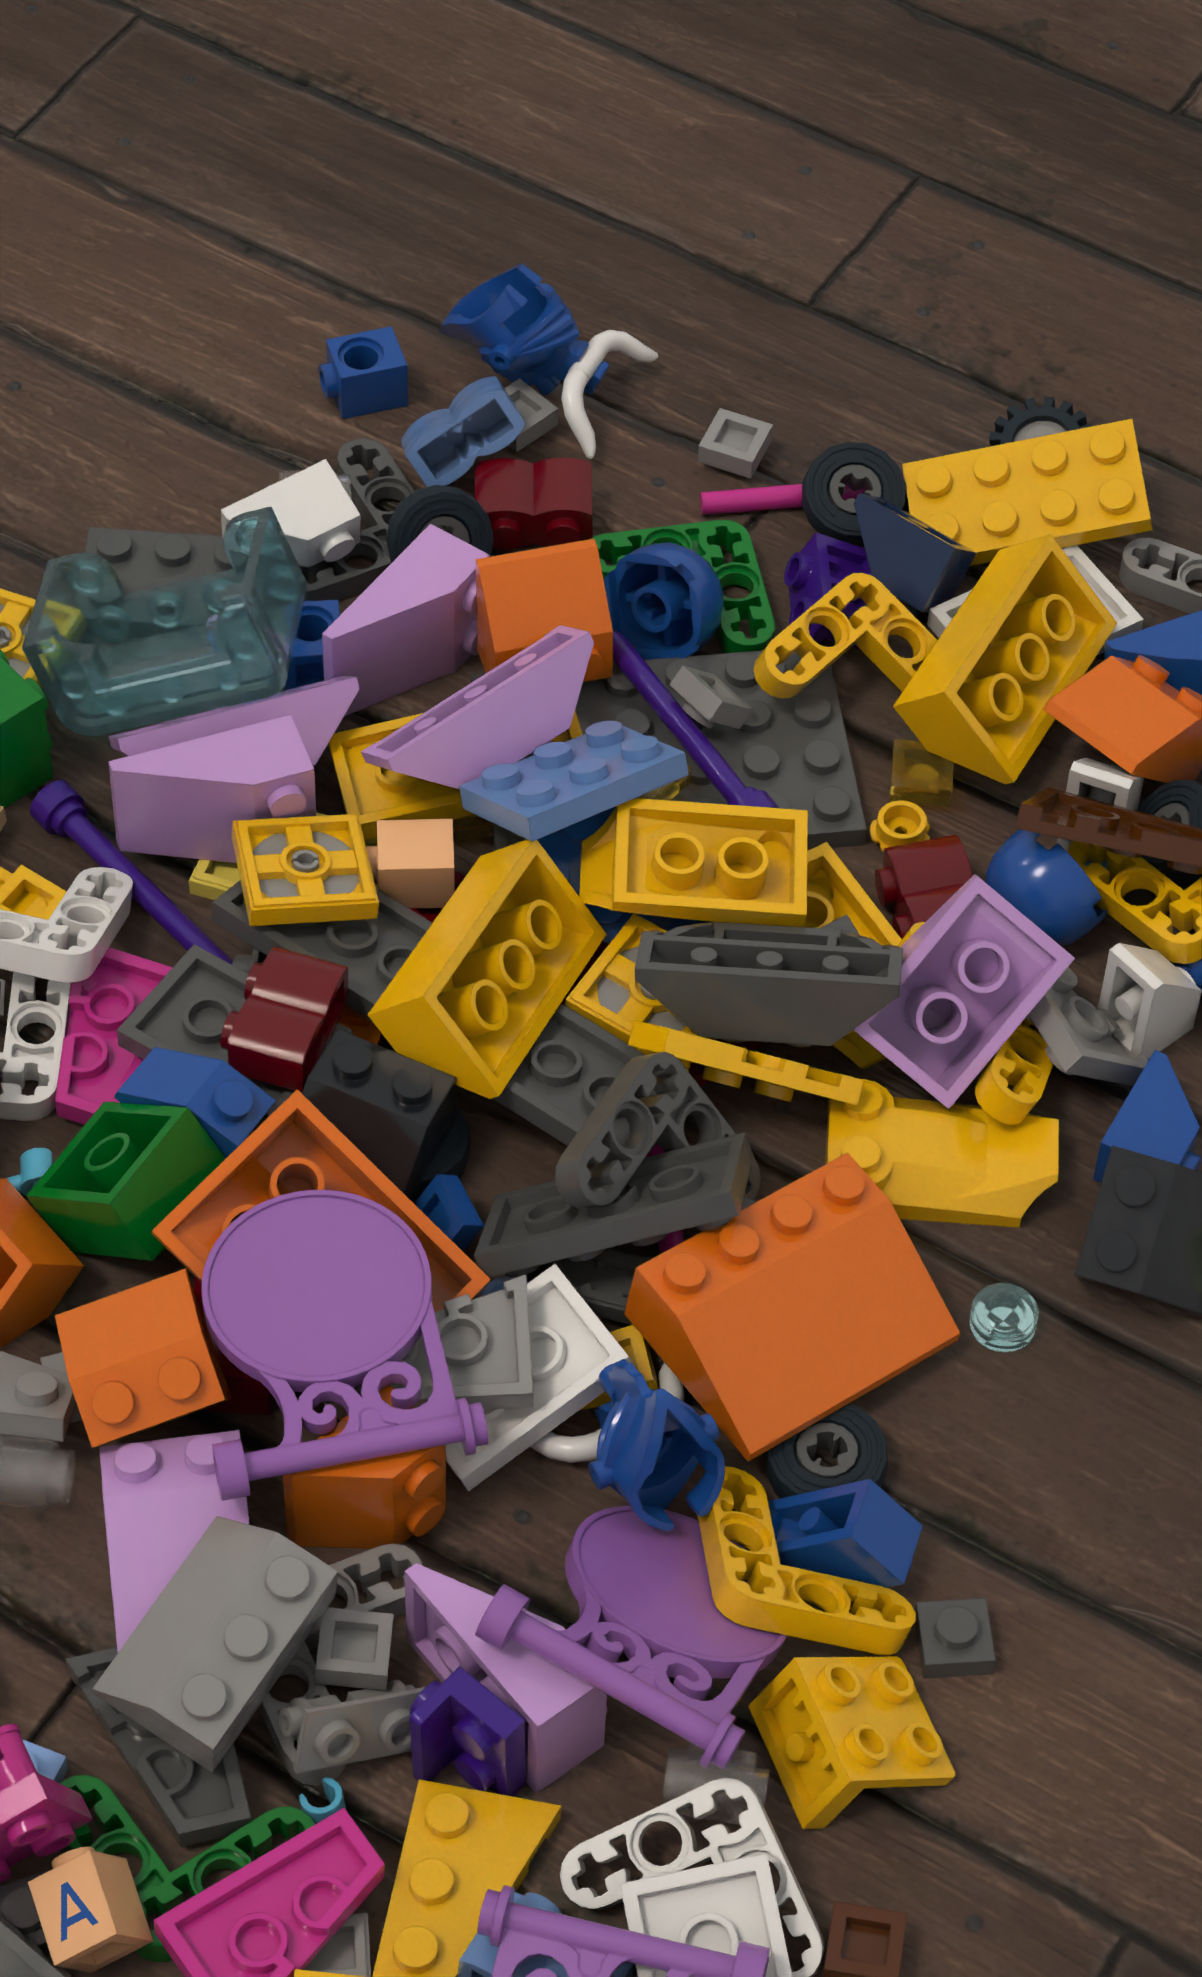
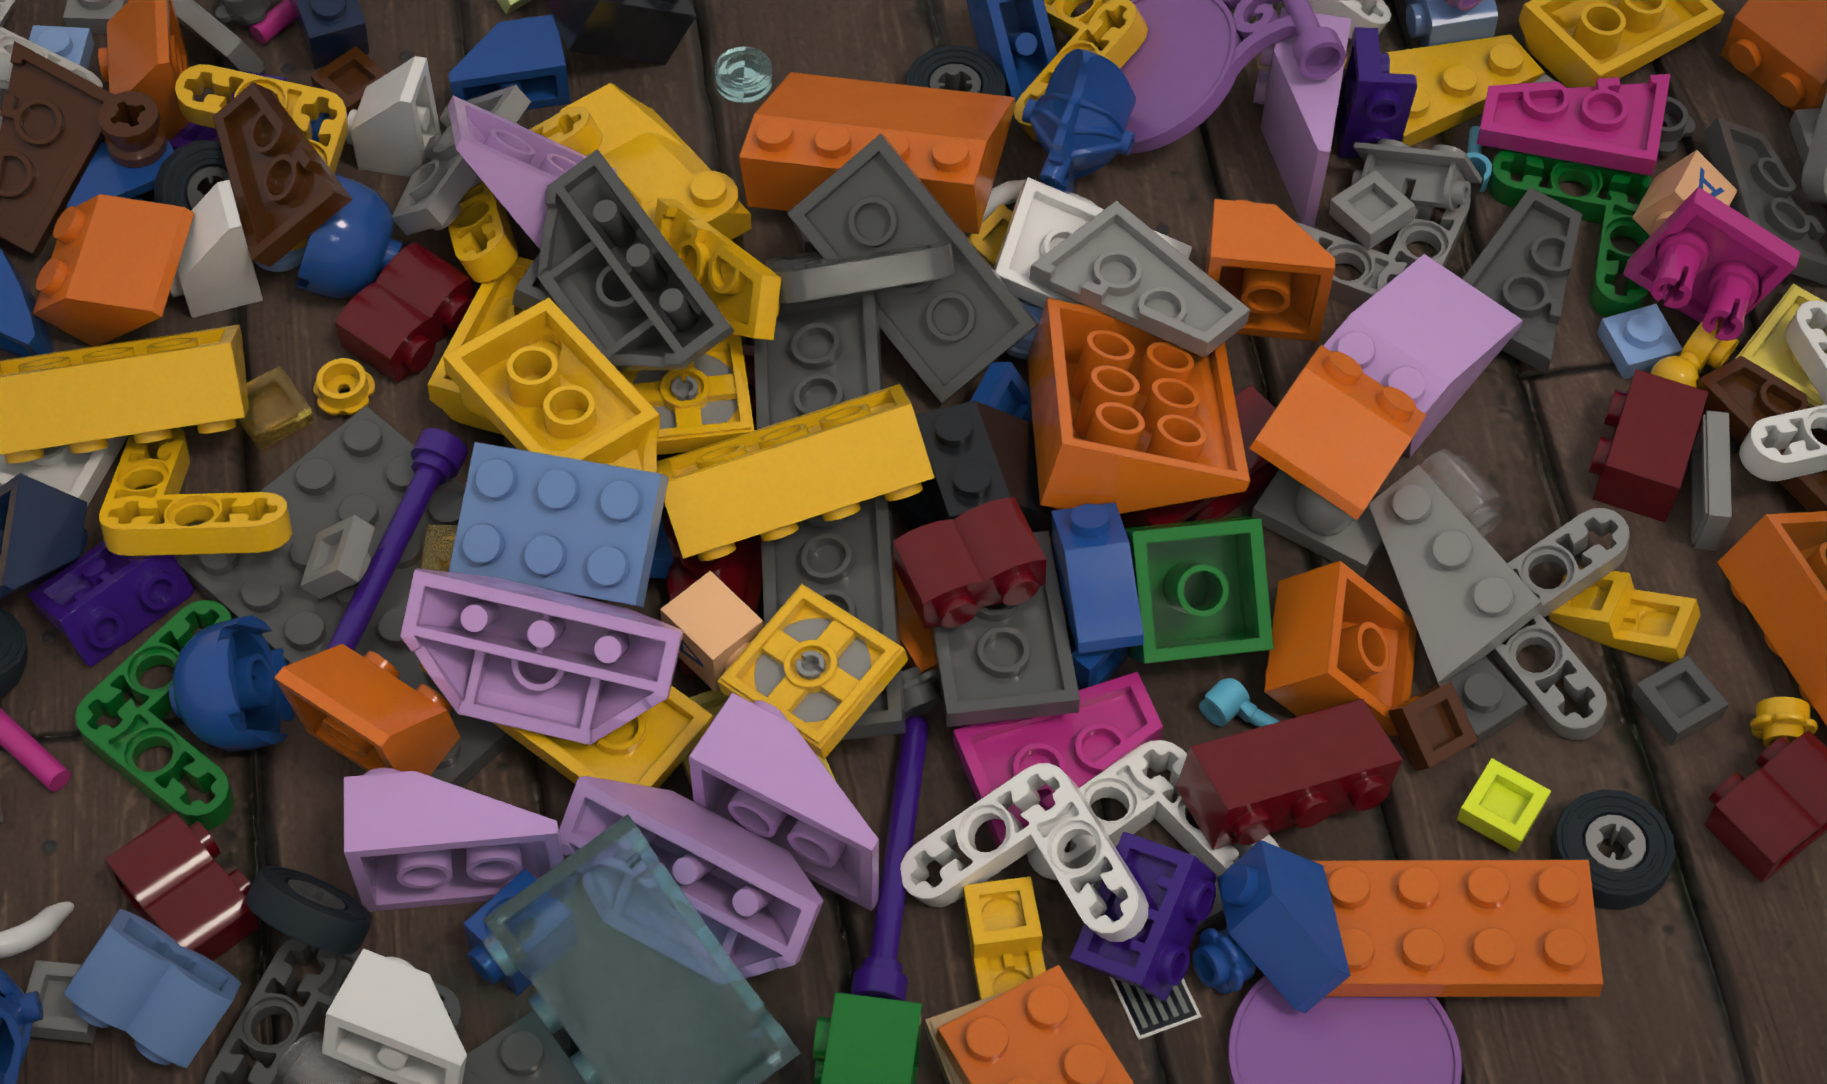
camera: 130 degrees left, 5 degrees up
(218, 1638) = (1468, 241): light grey slope -> none
(322, 1300) = (1197, 330): medium lavender piece -> none

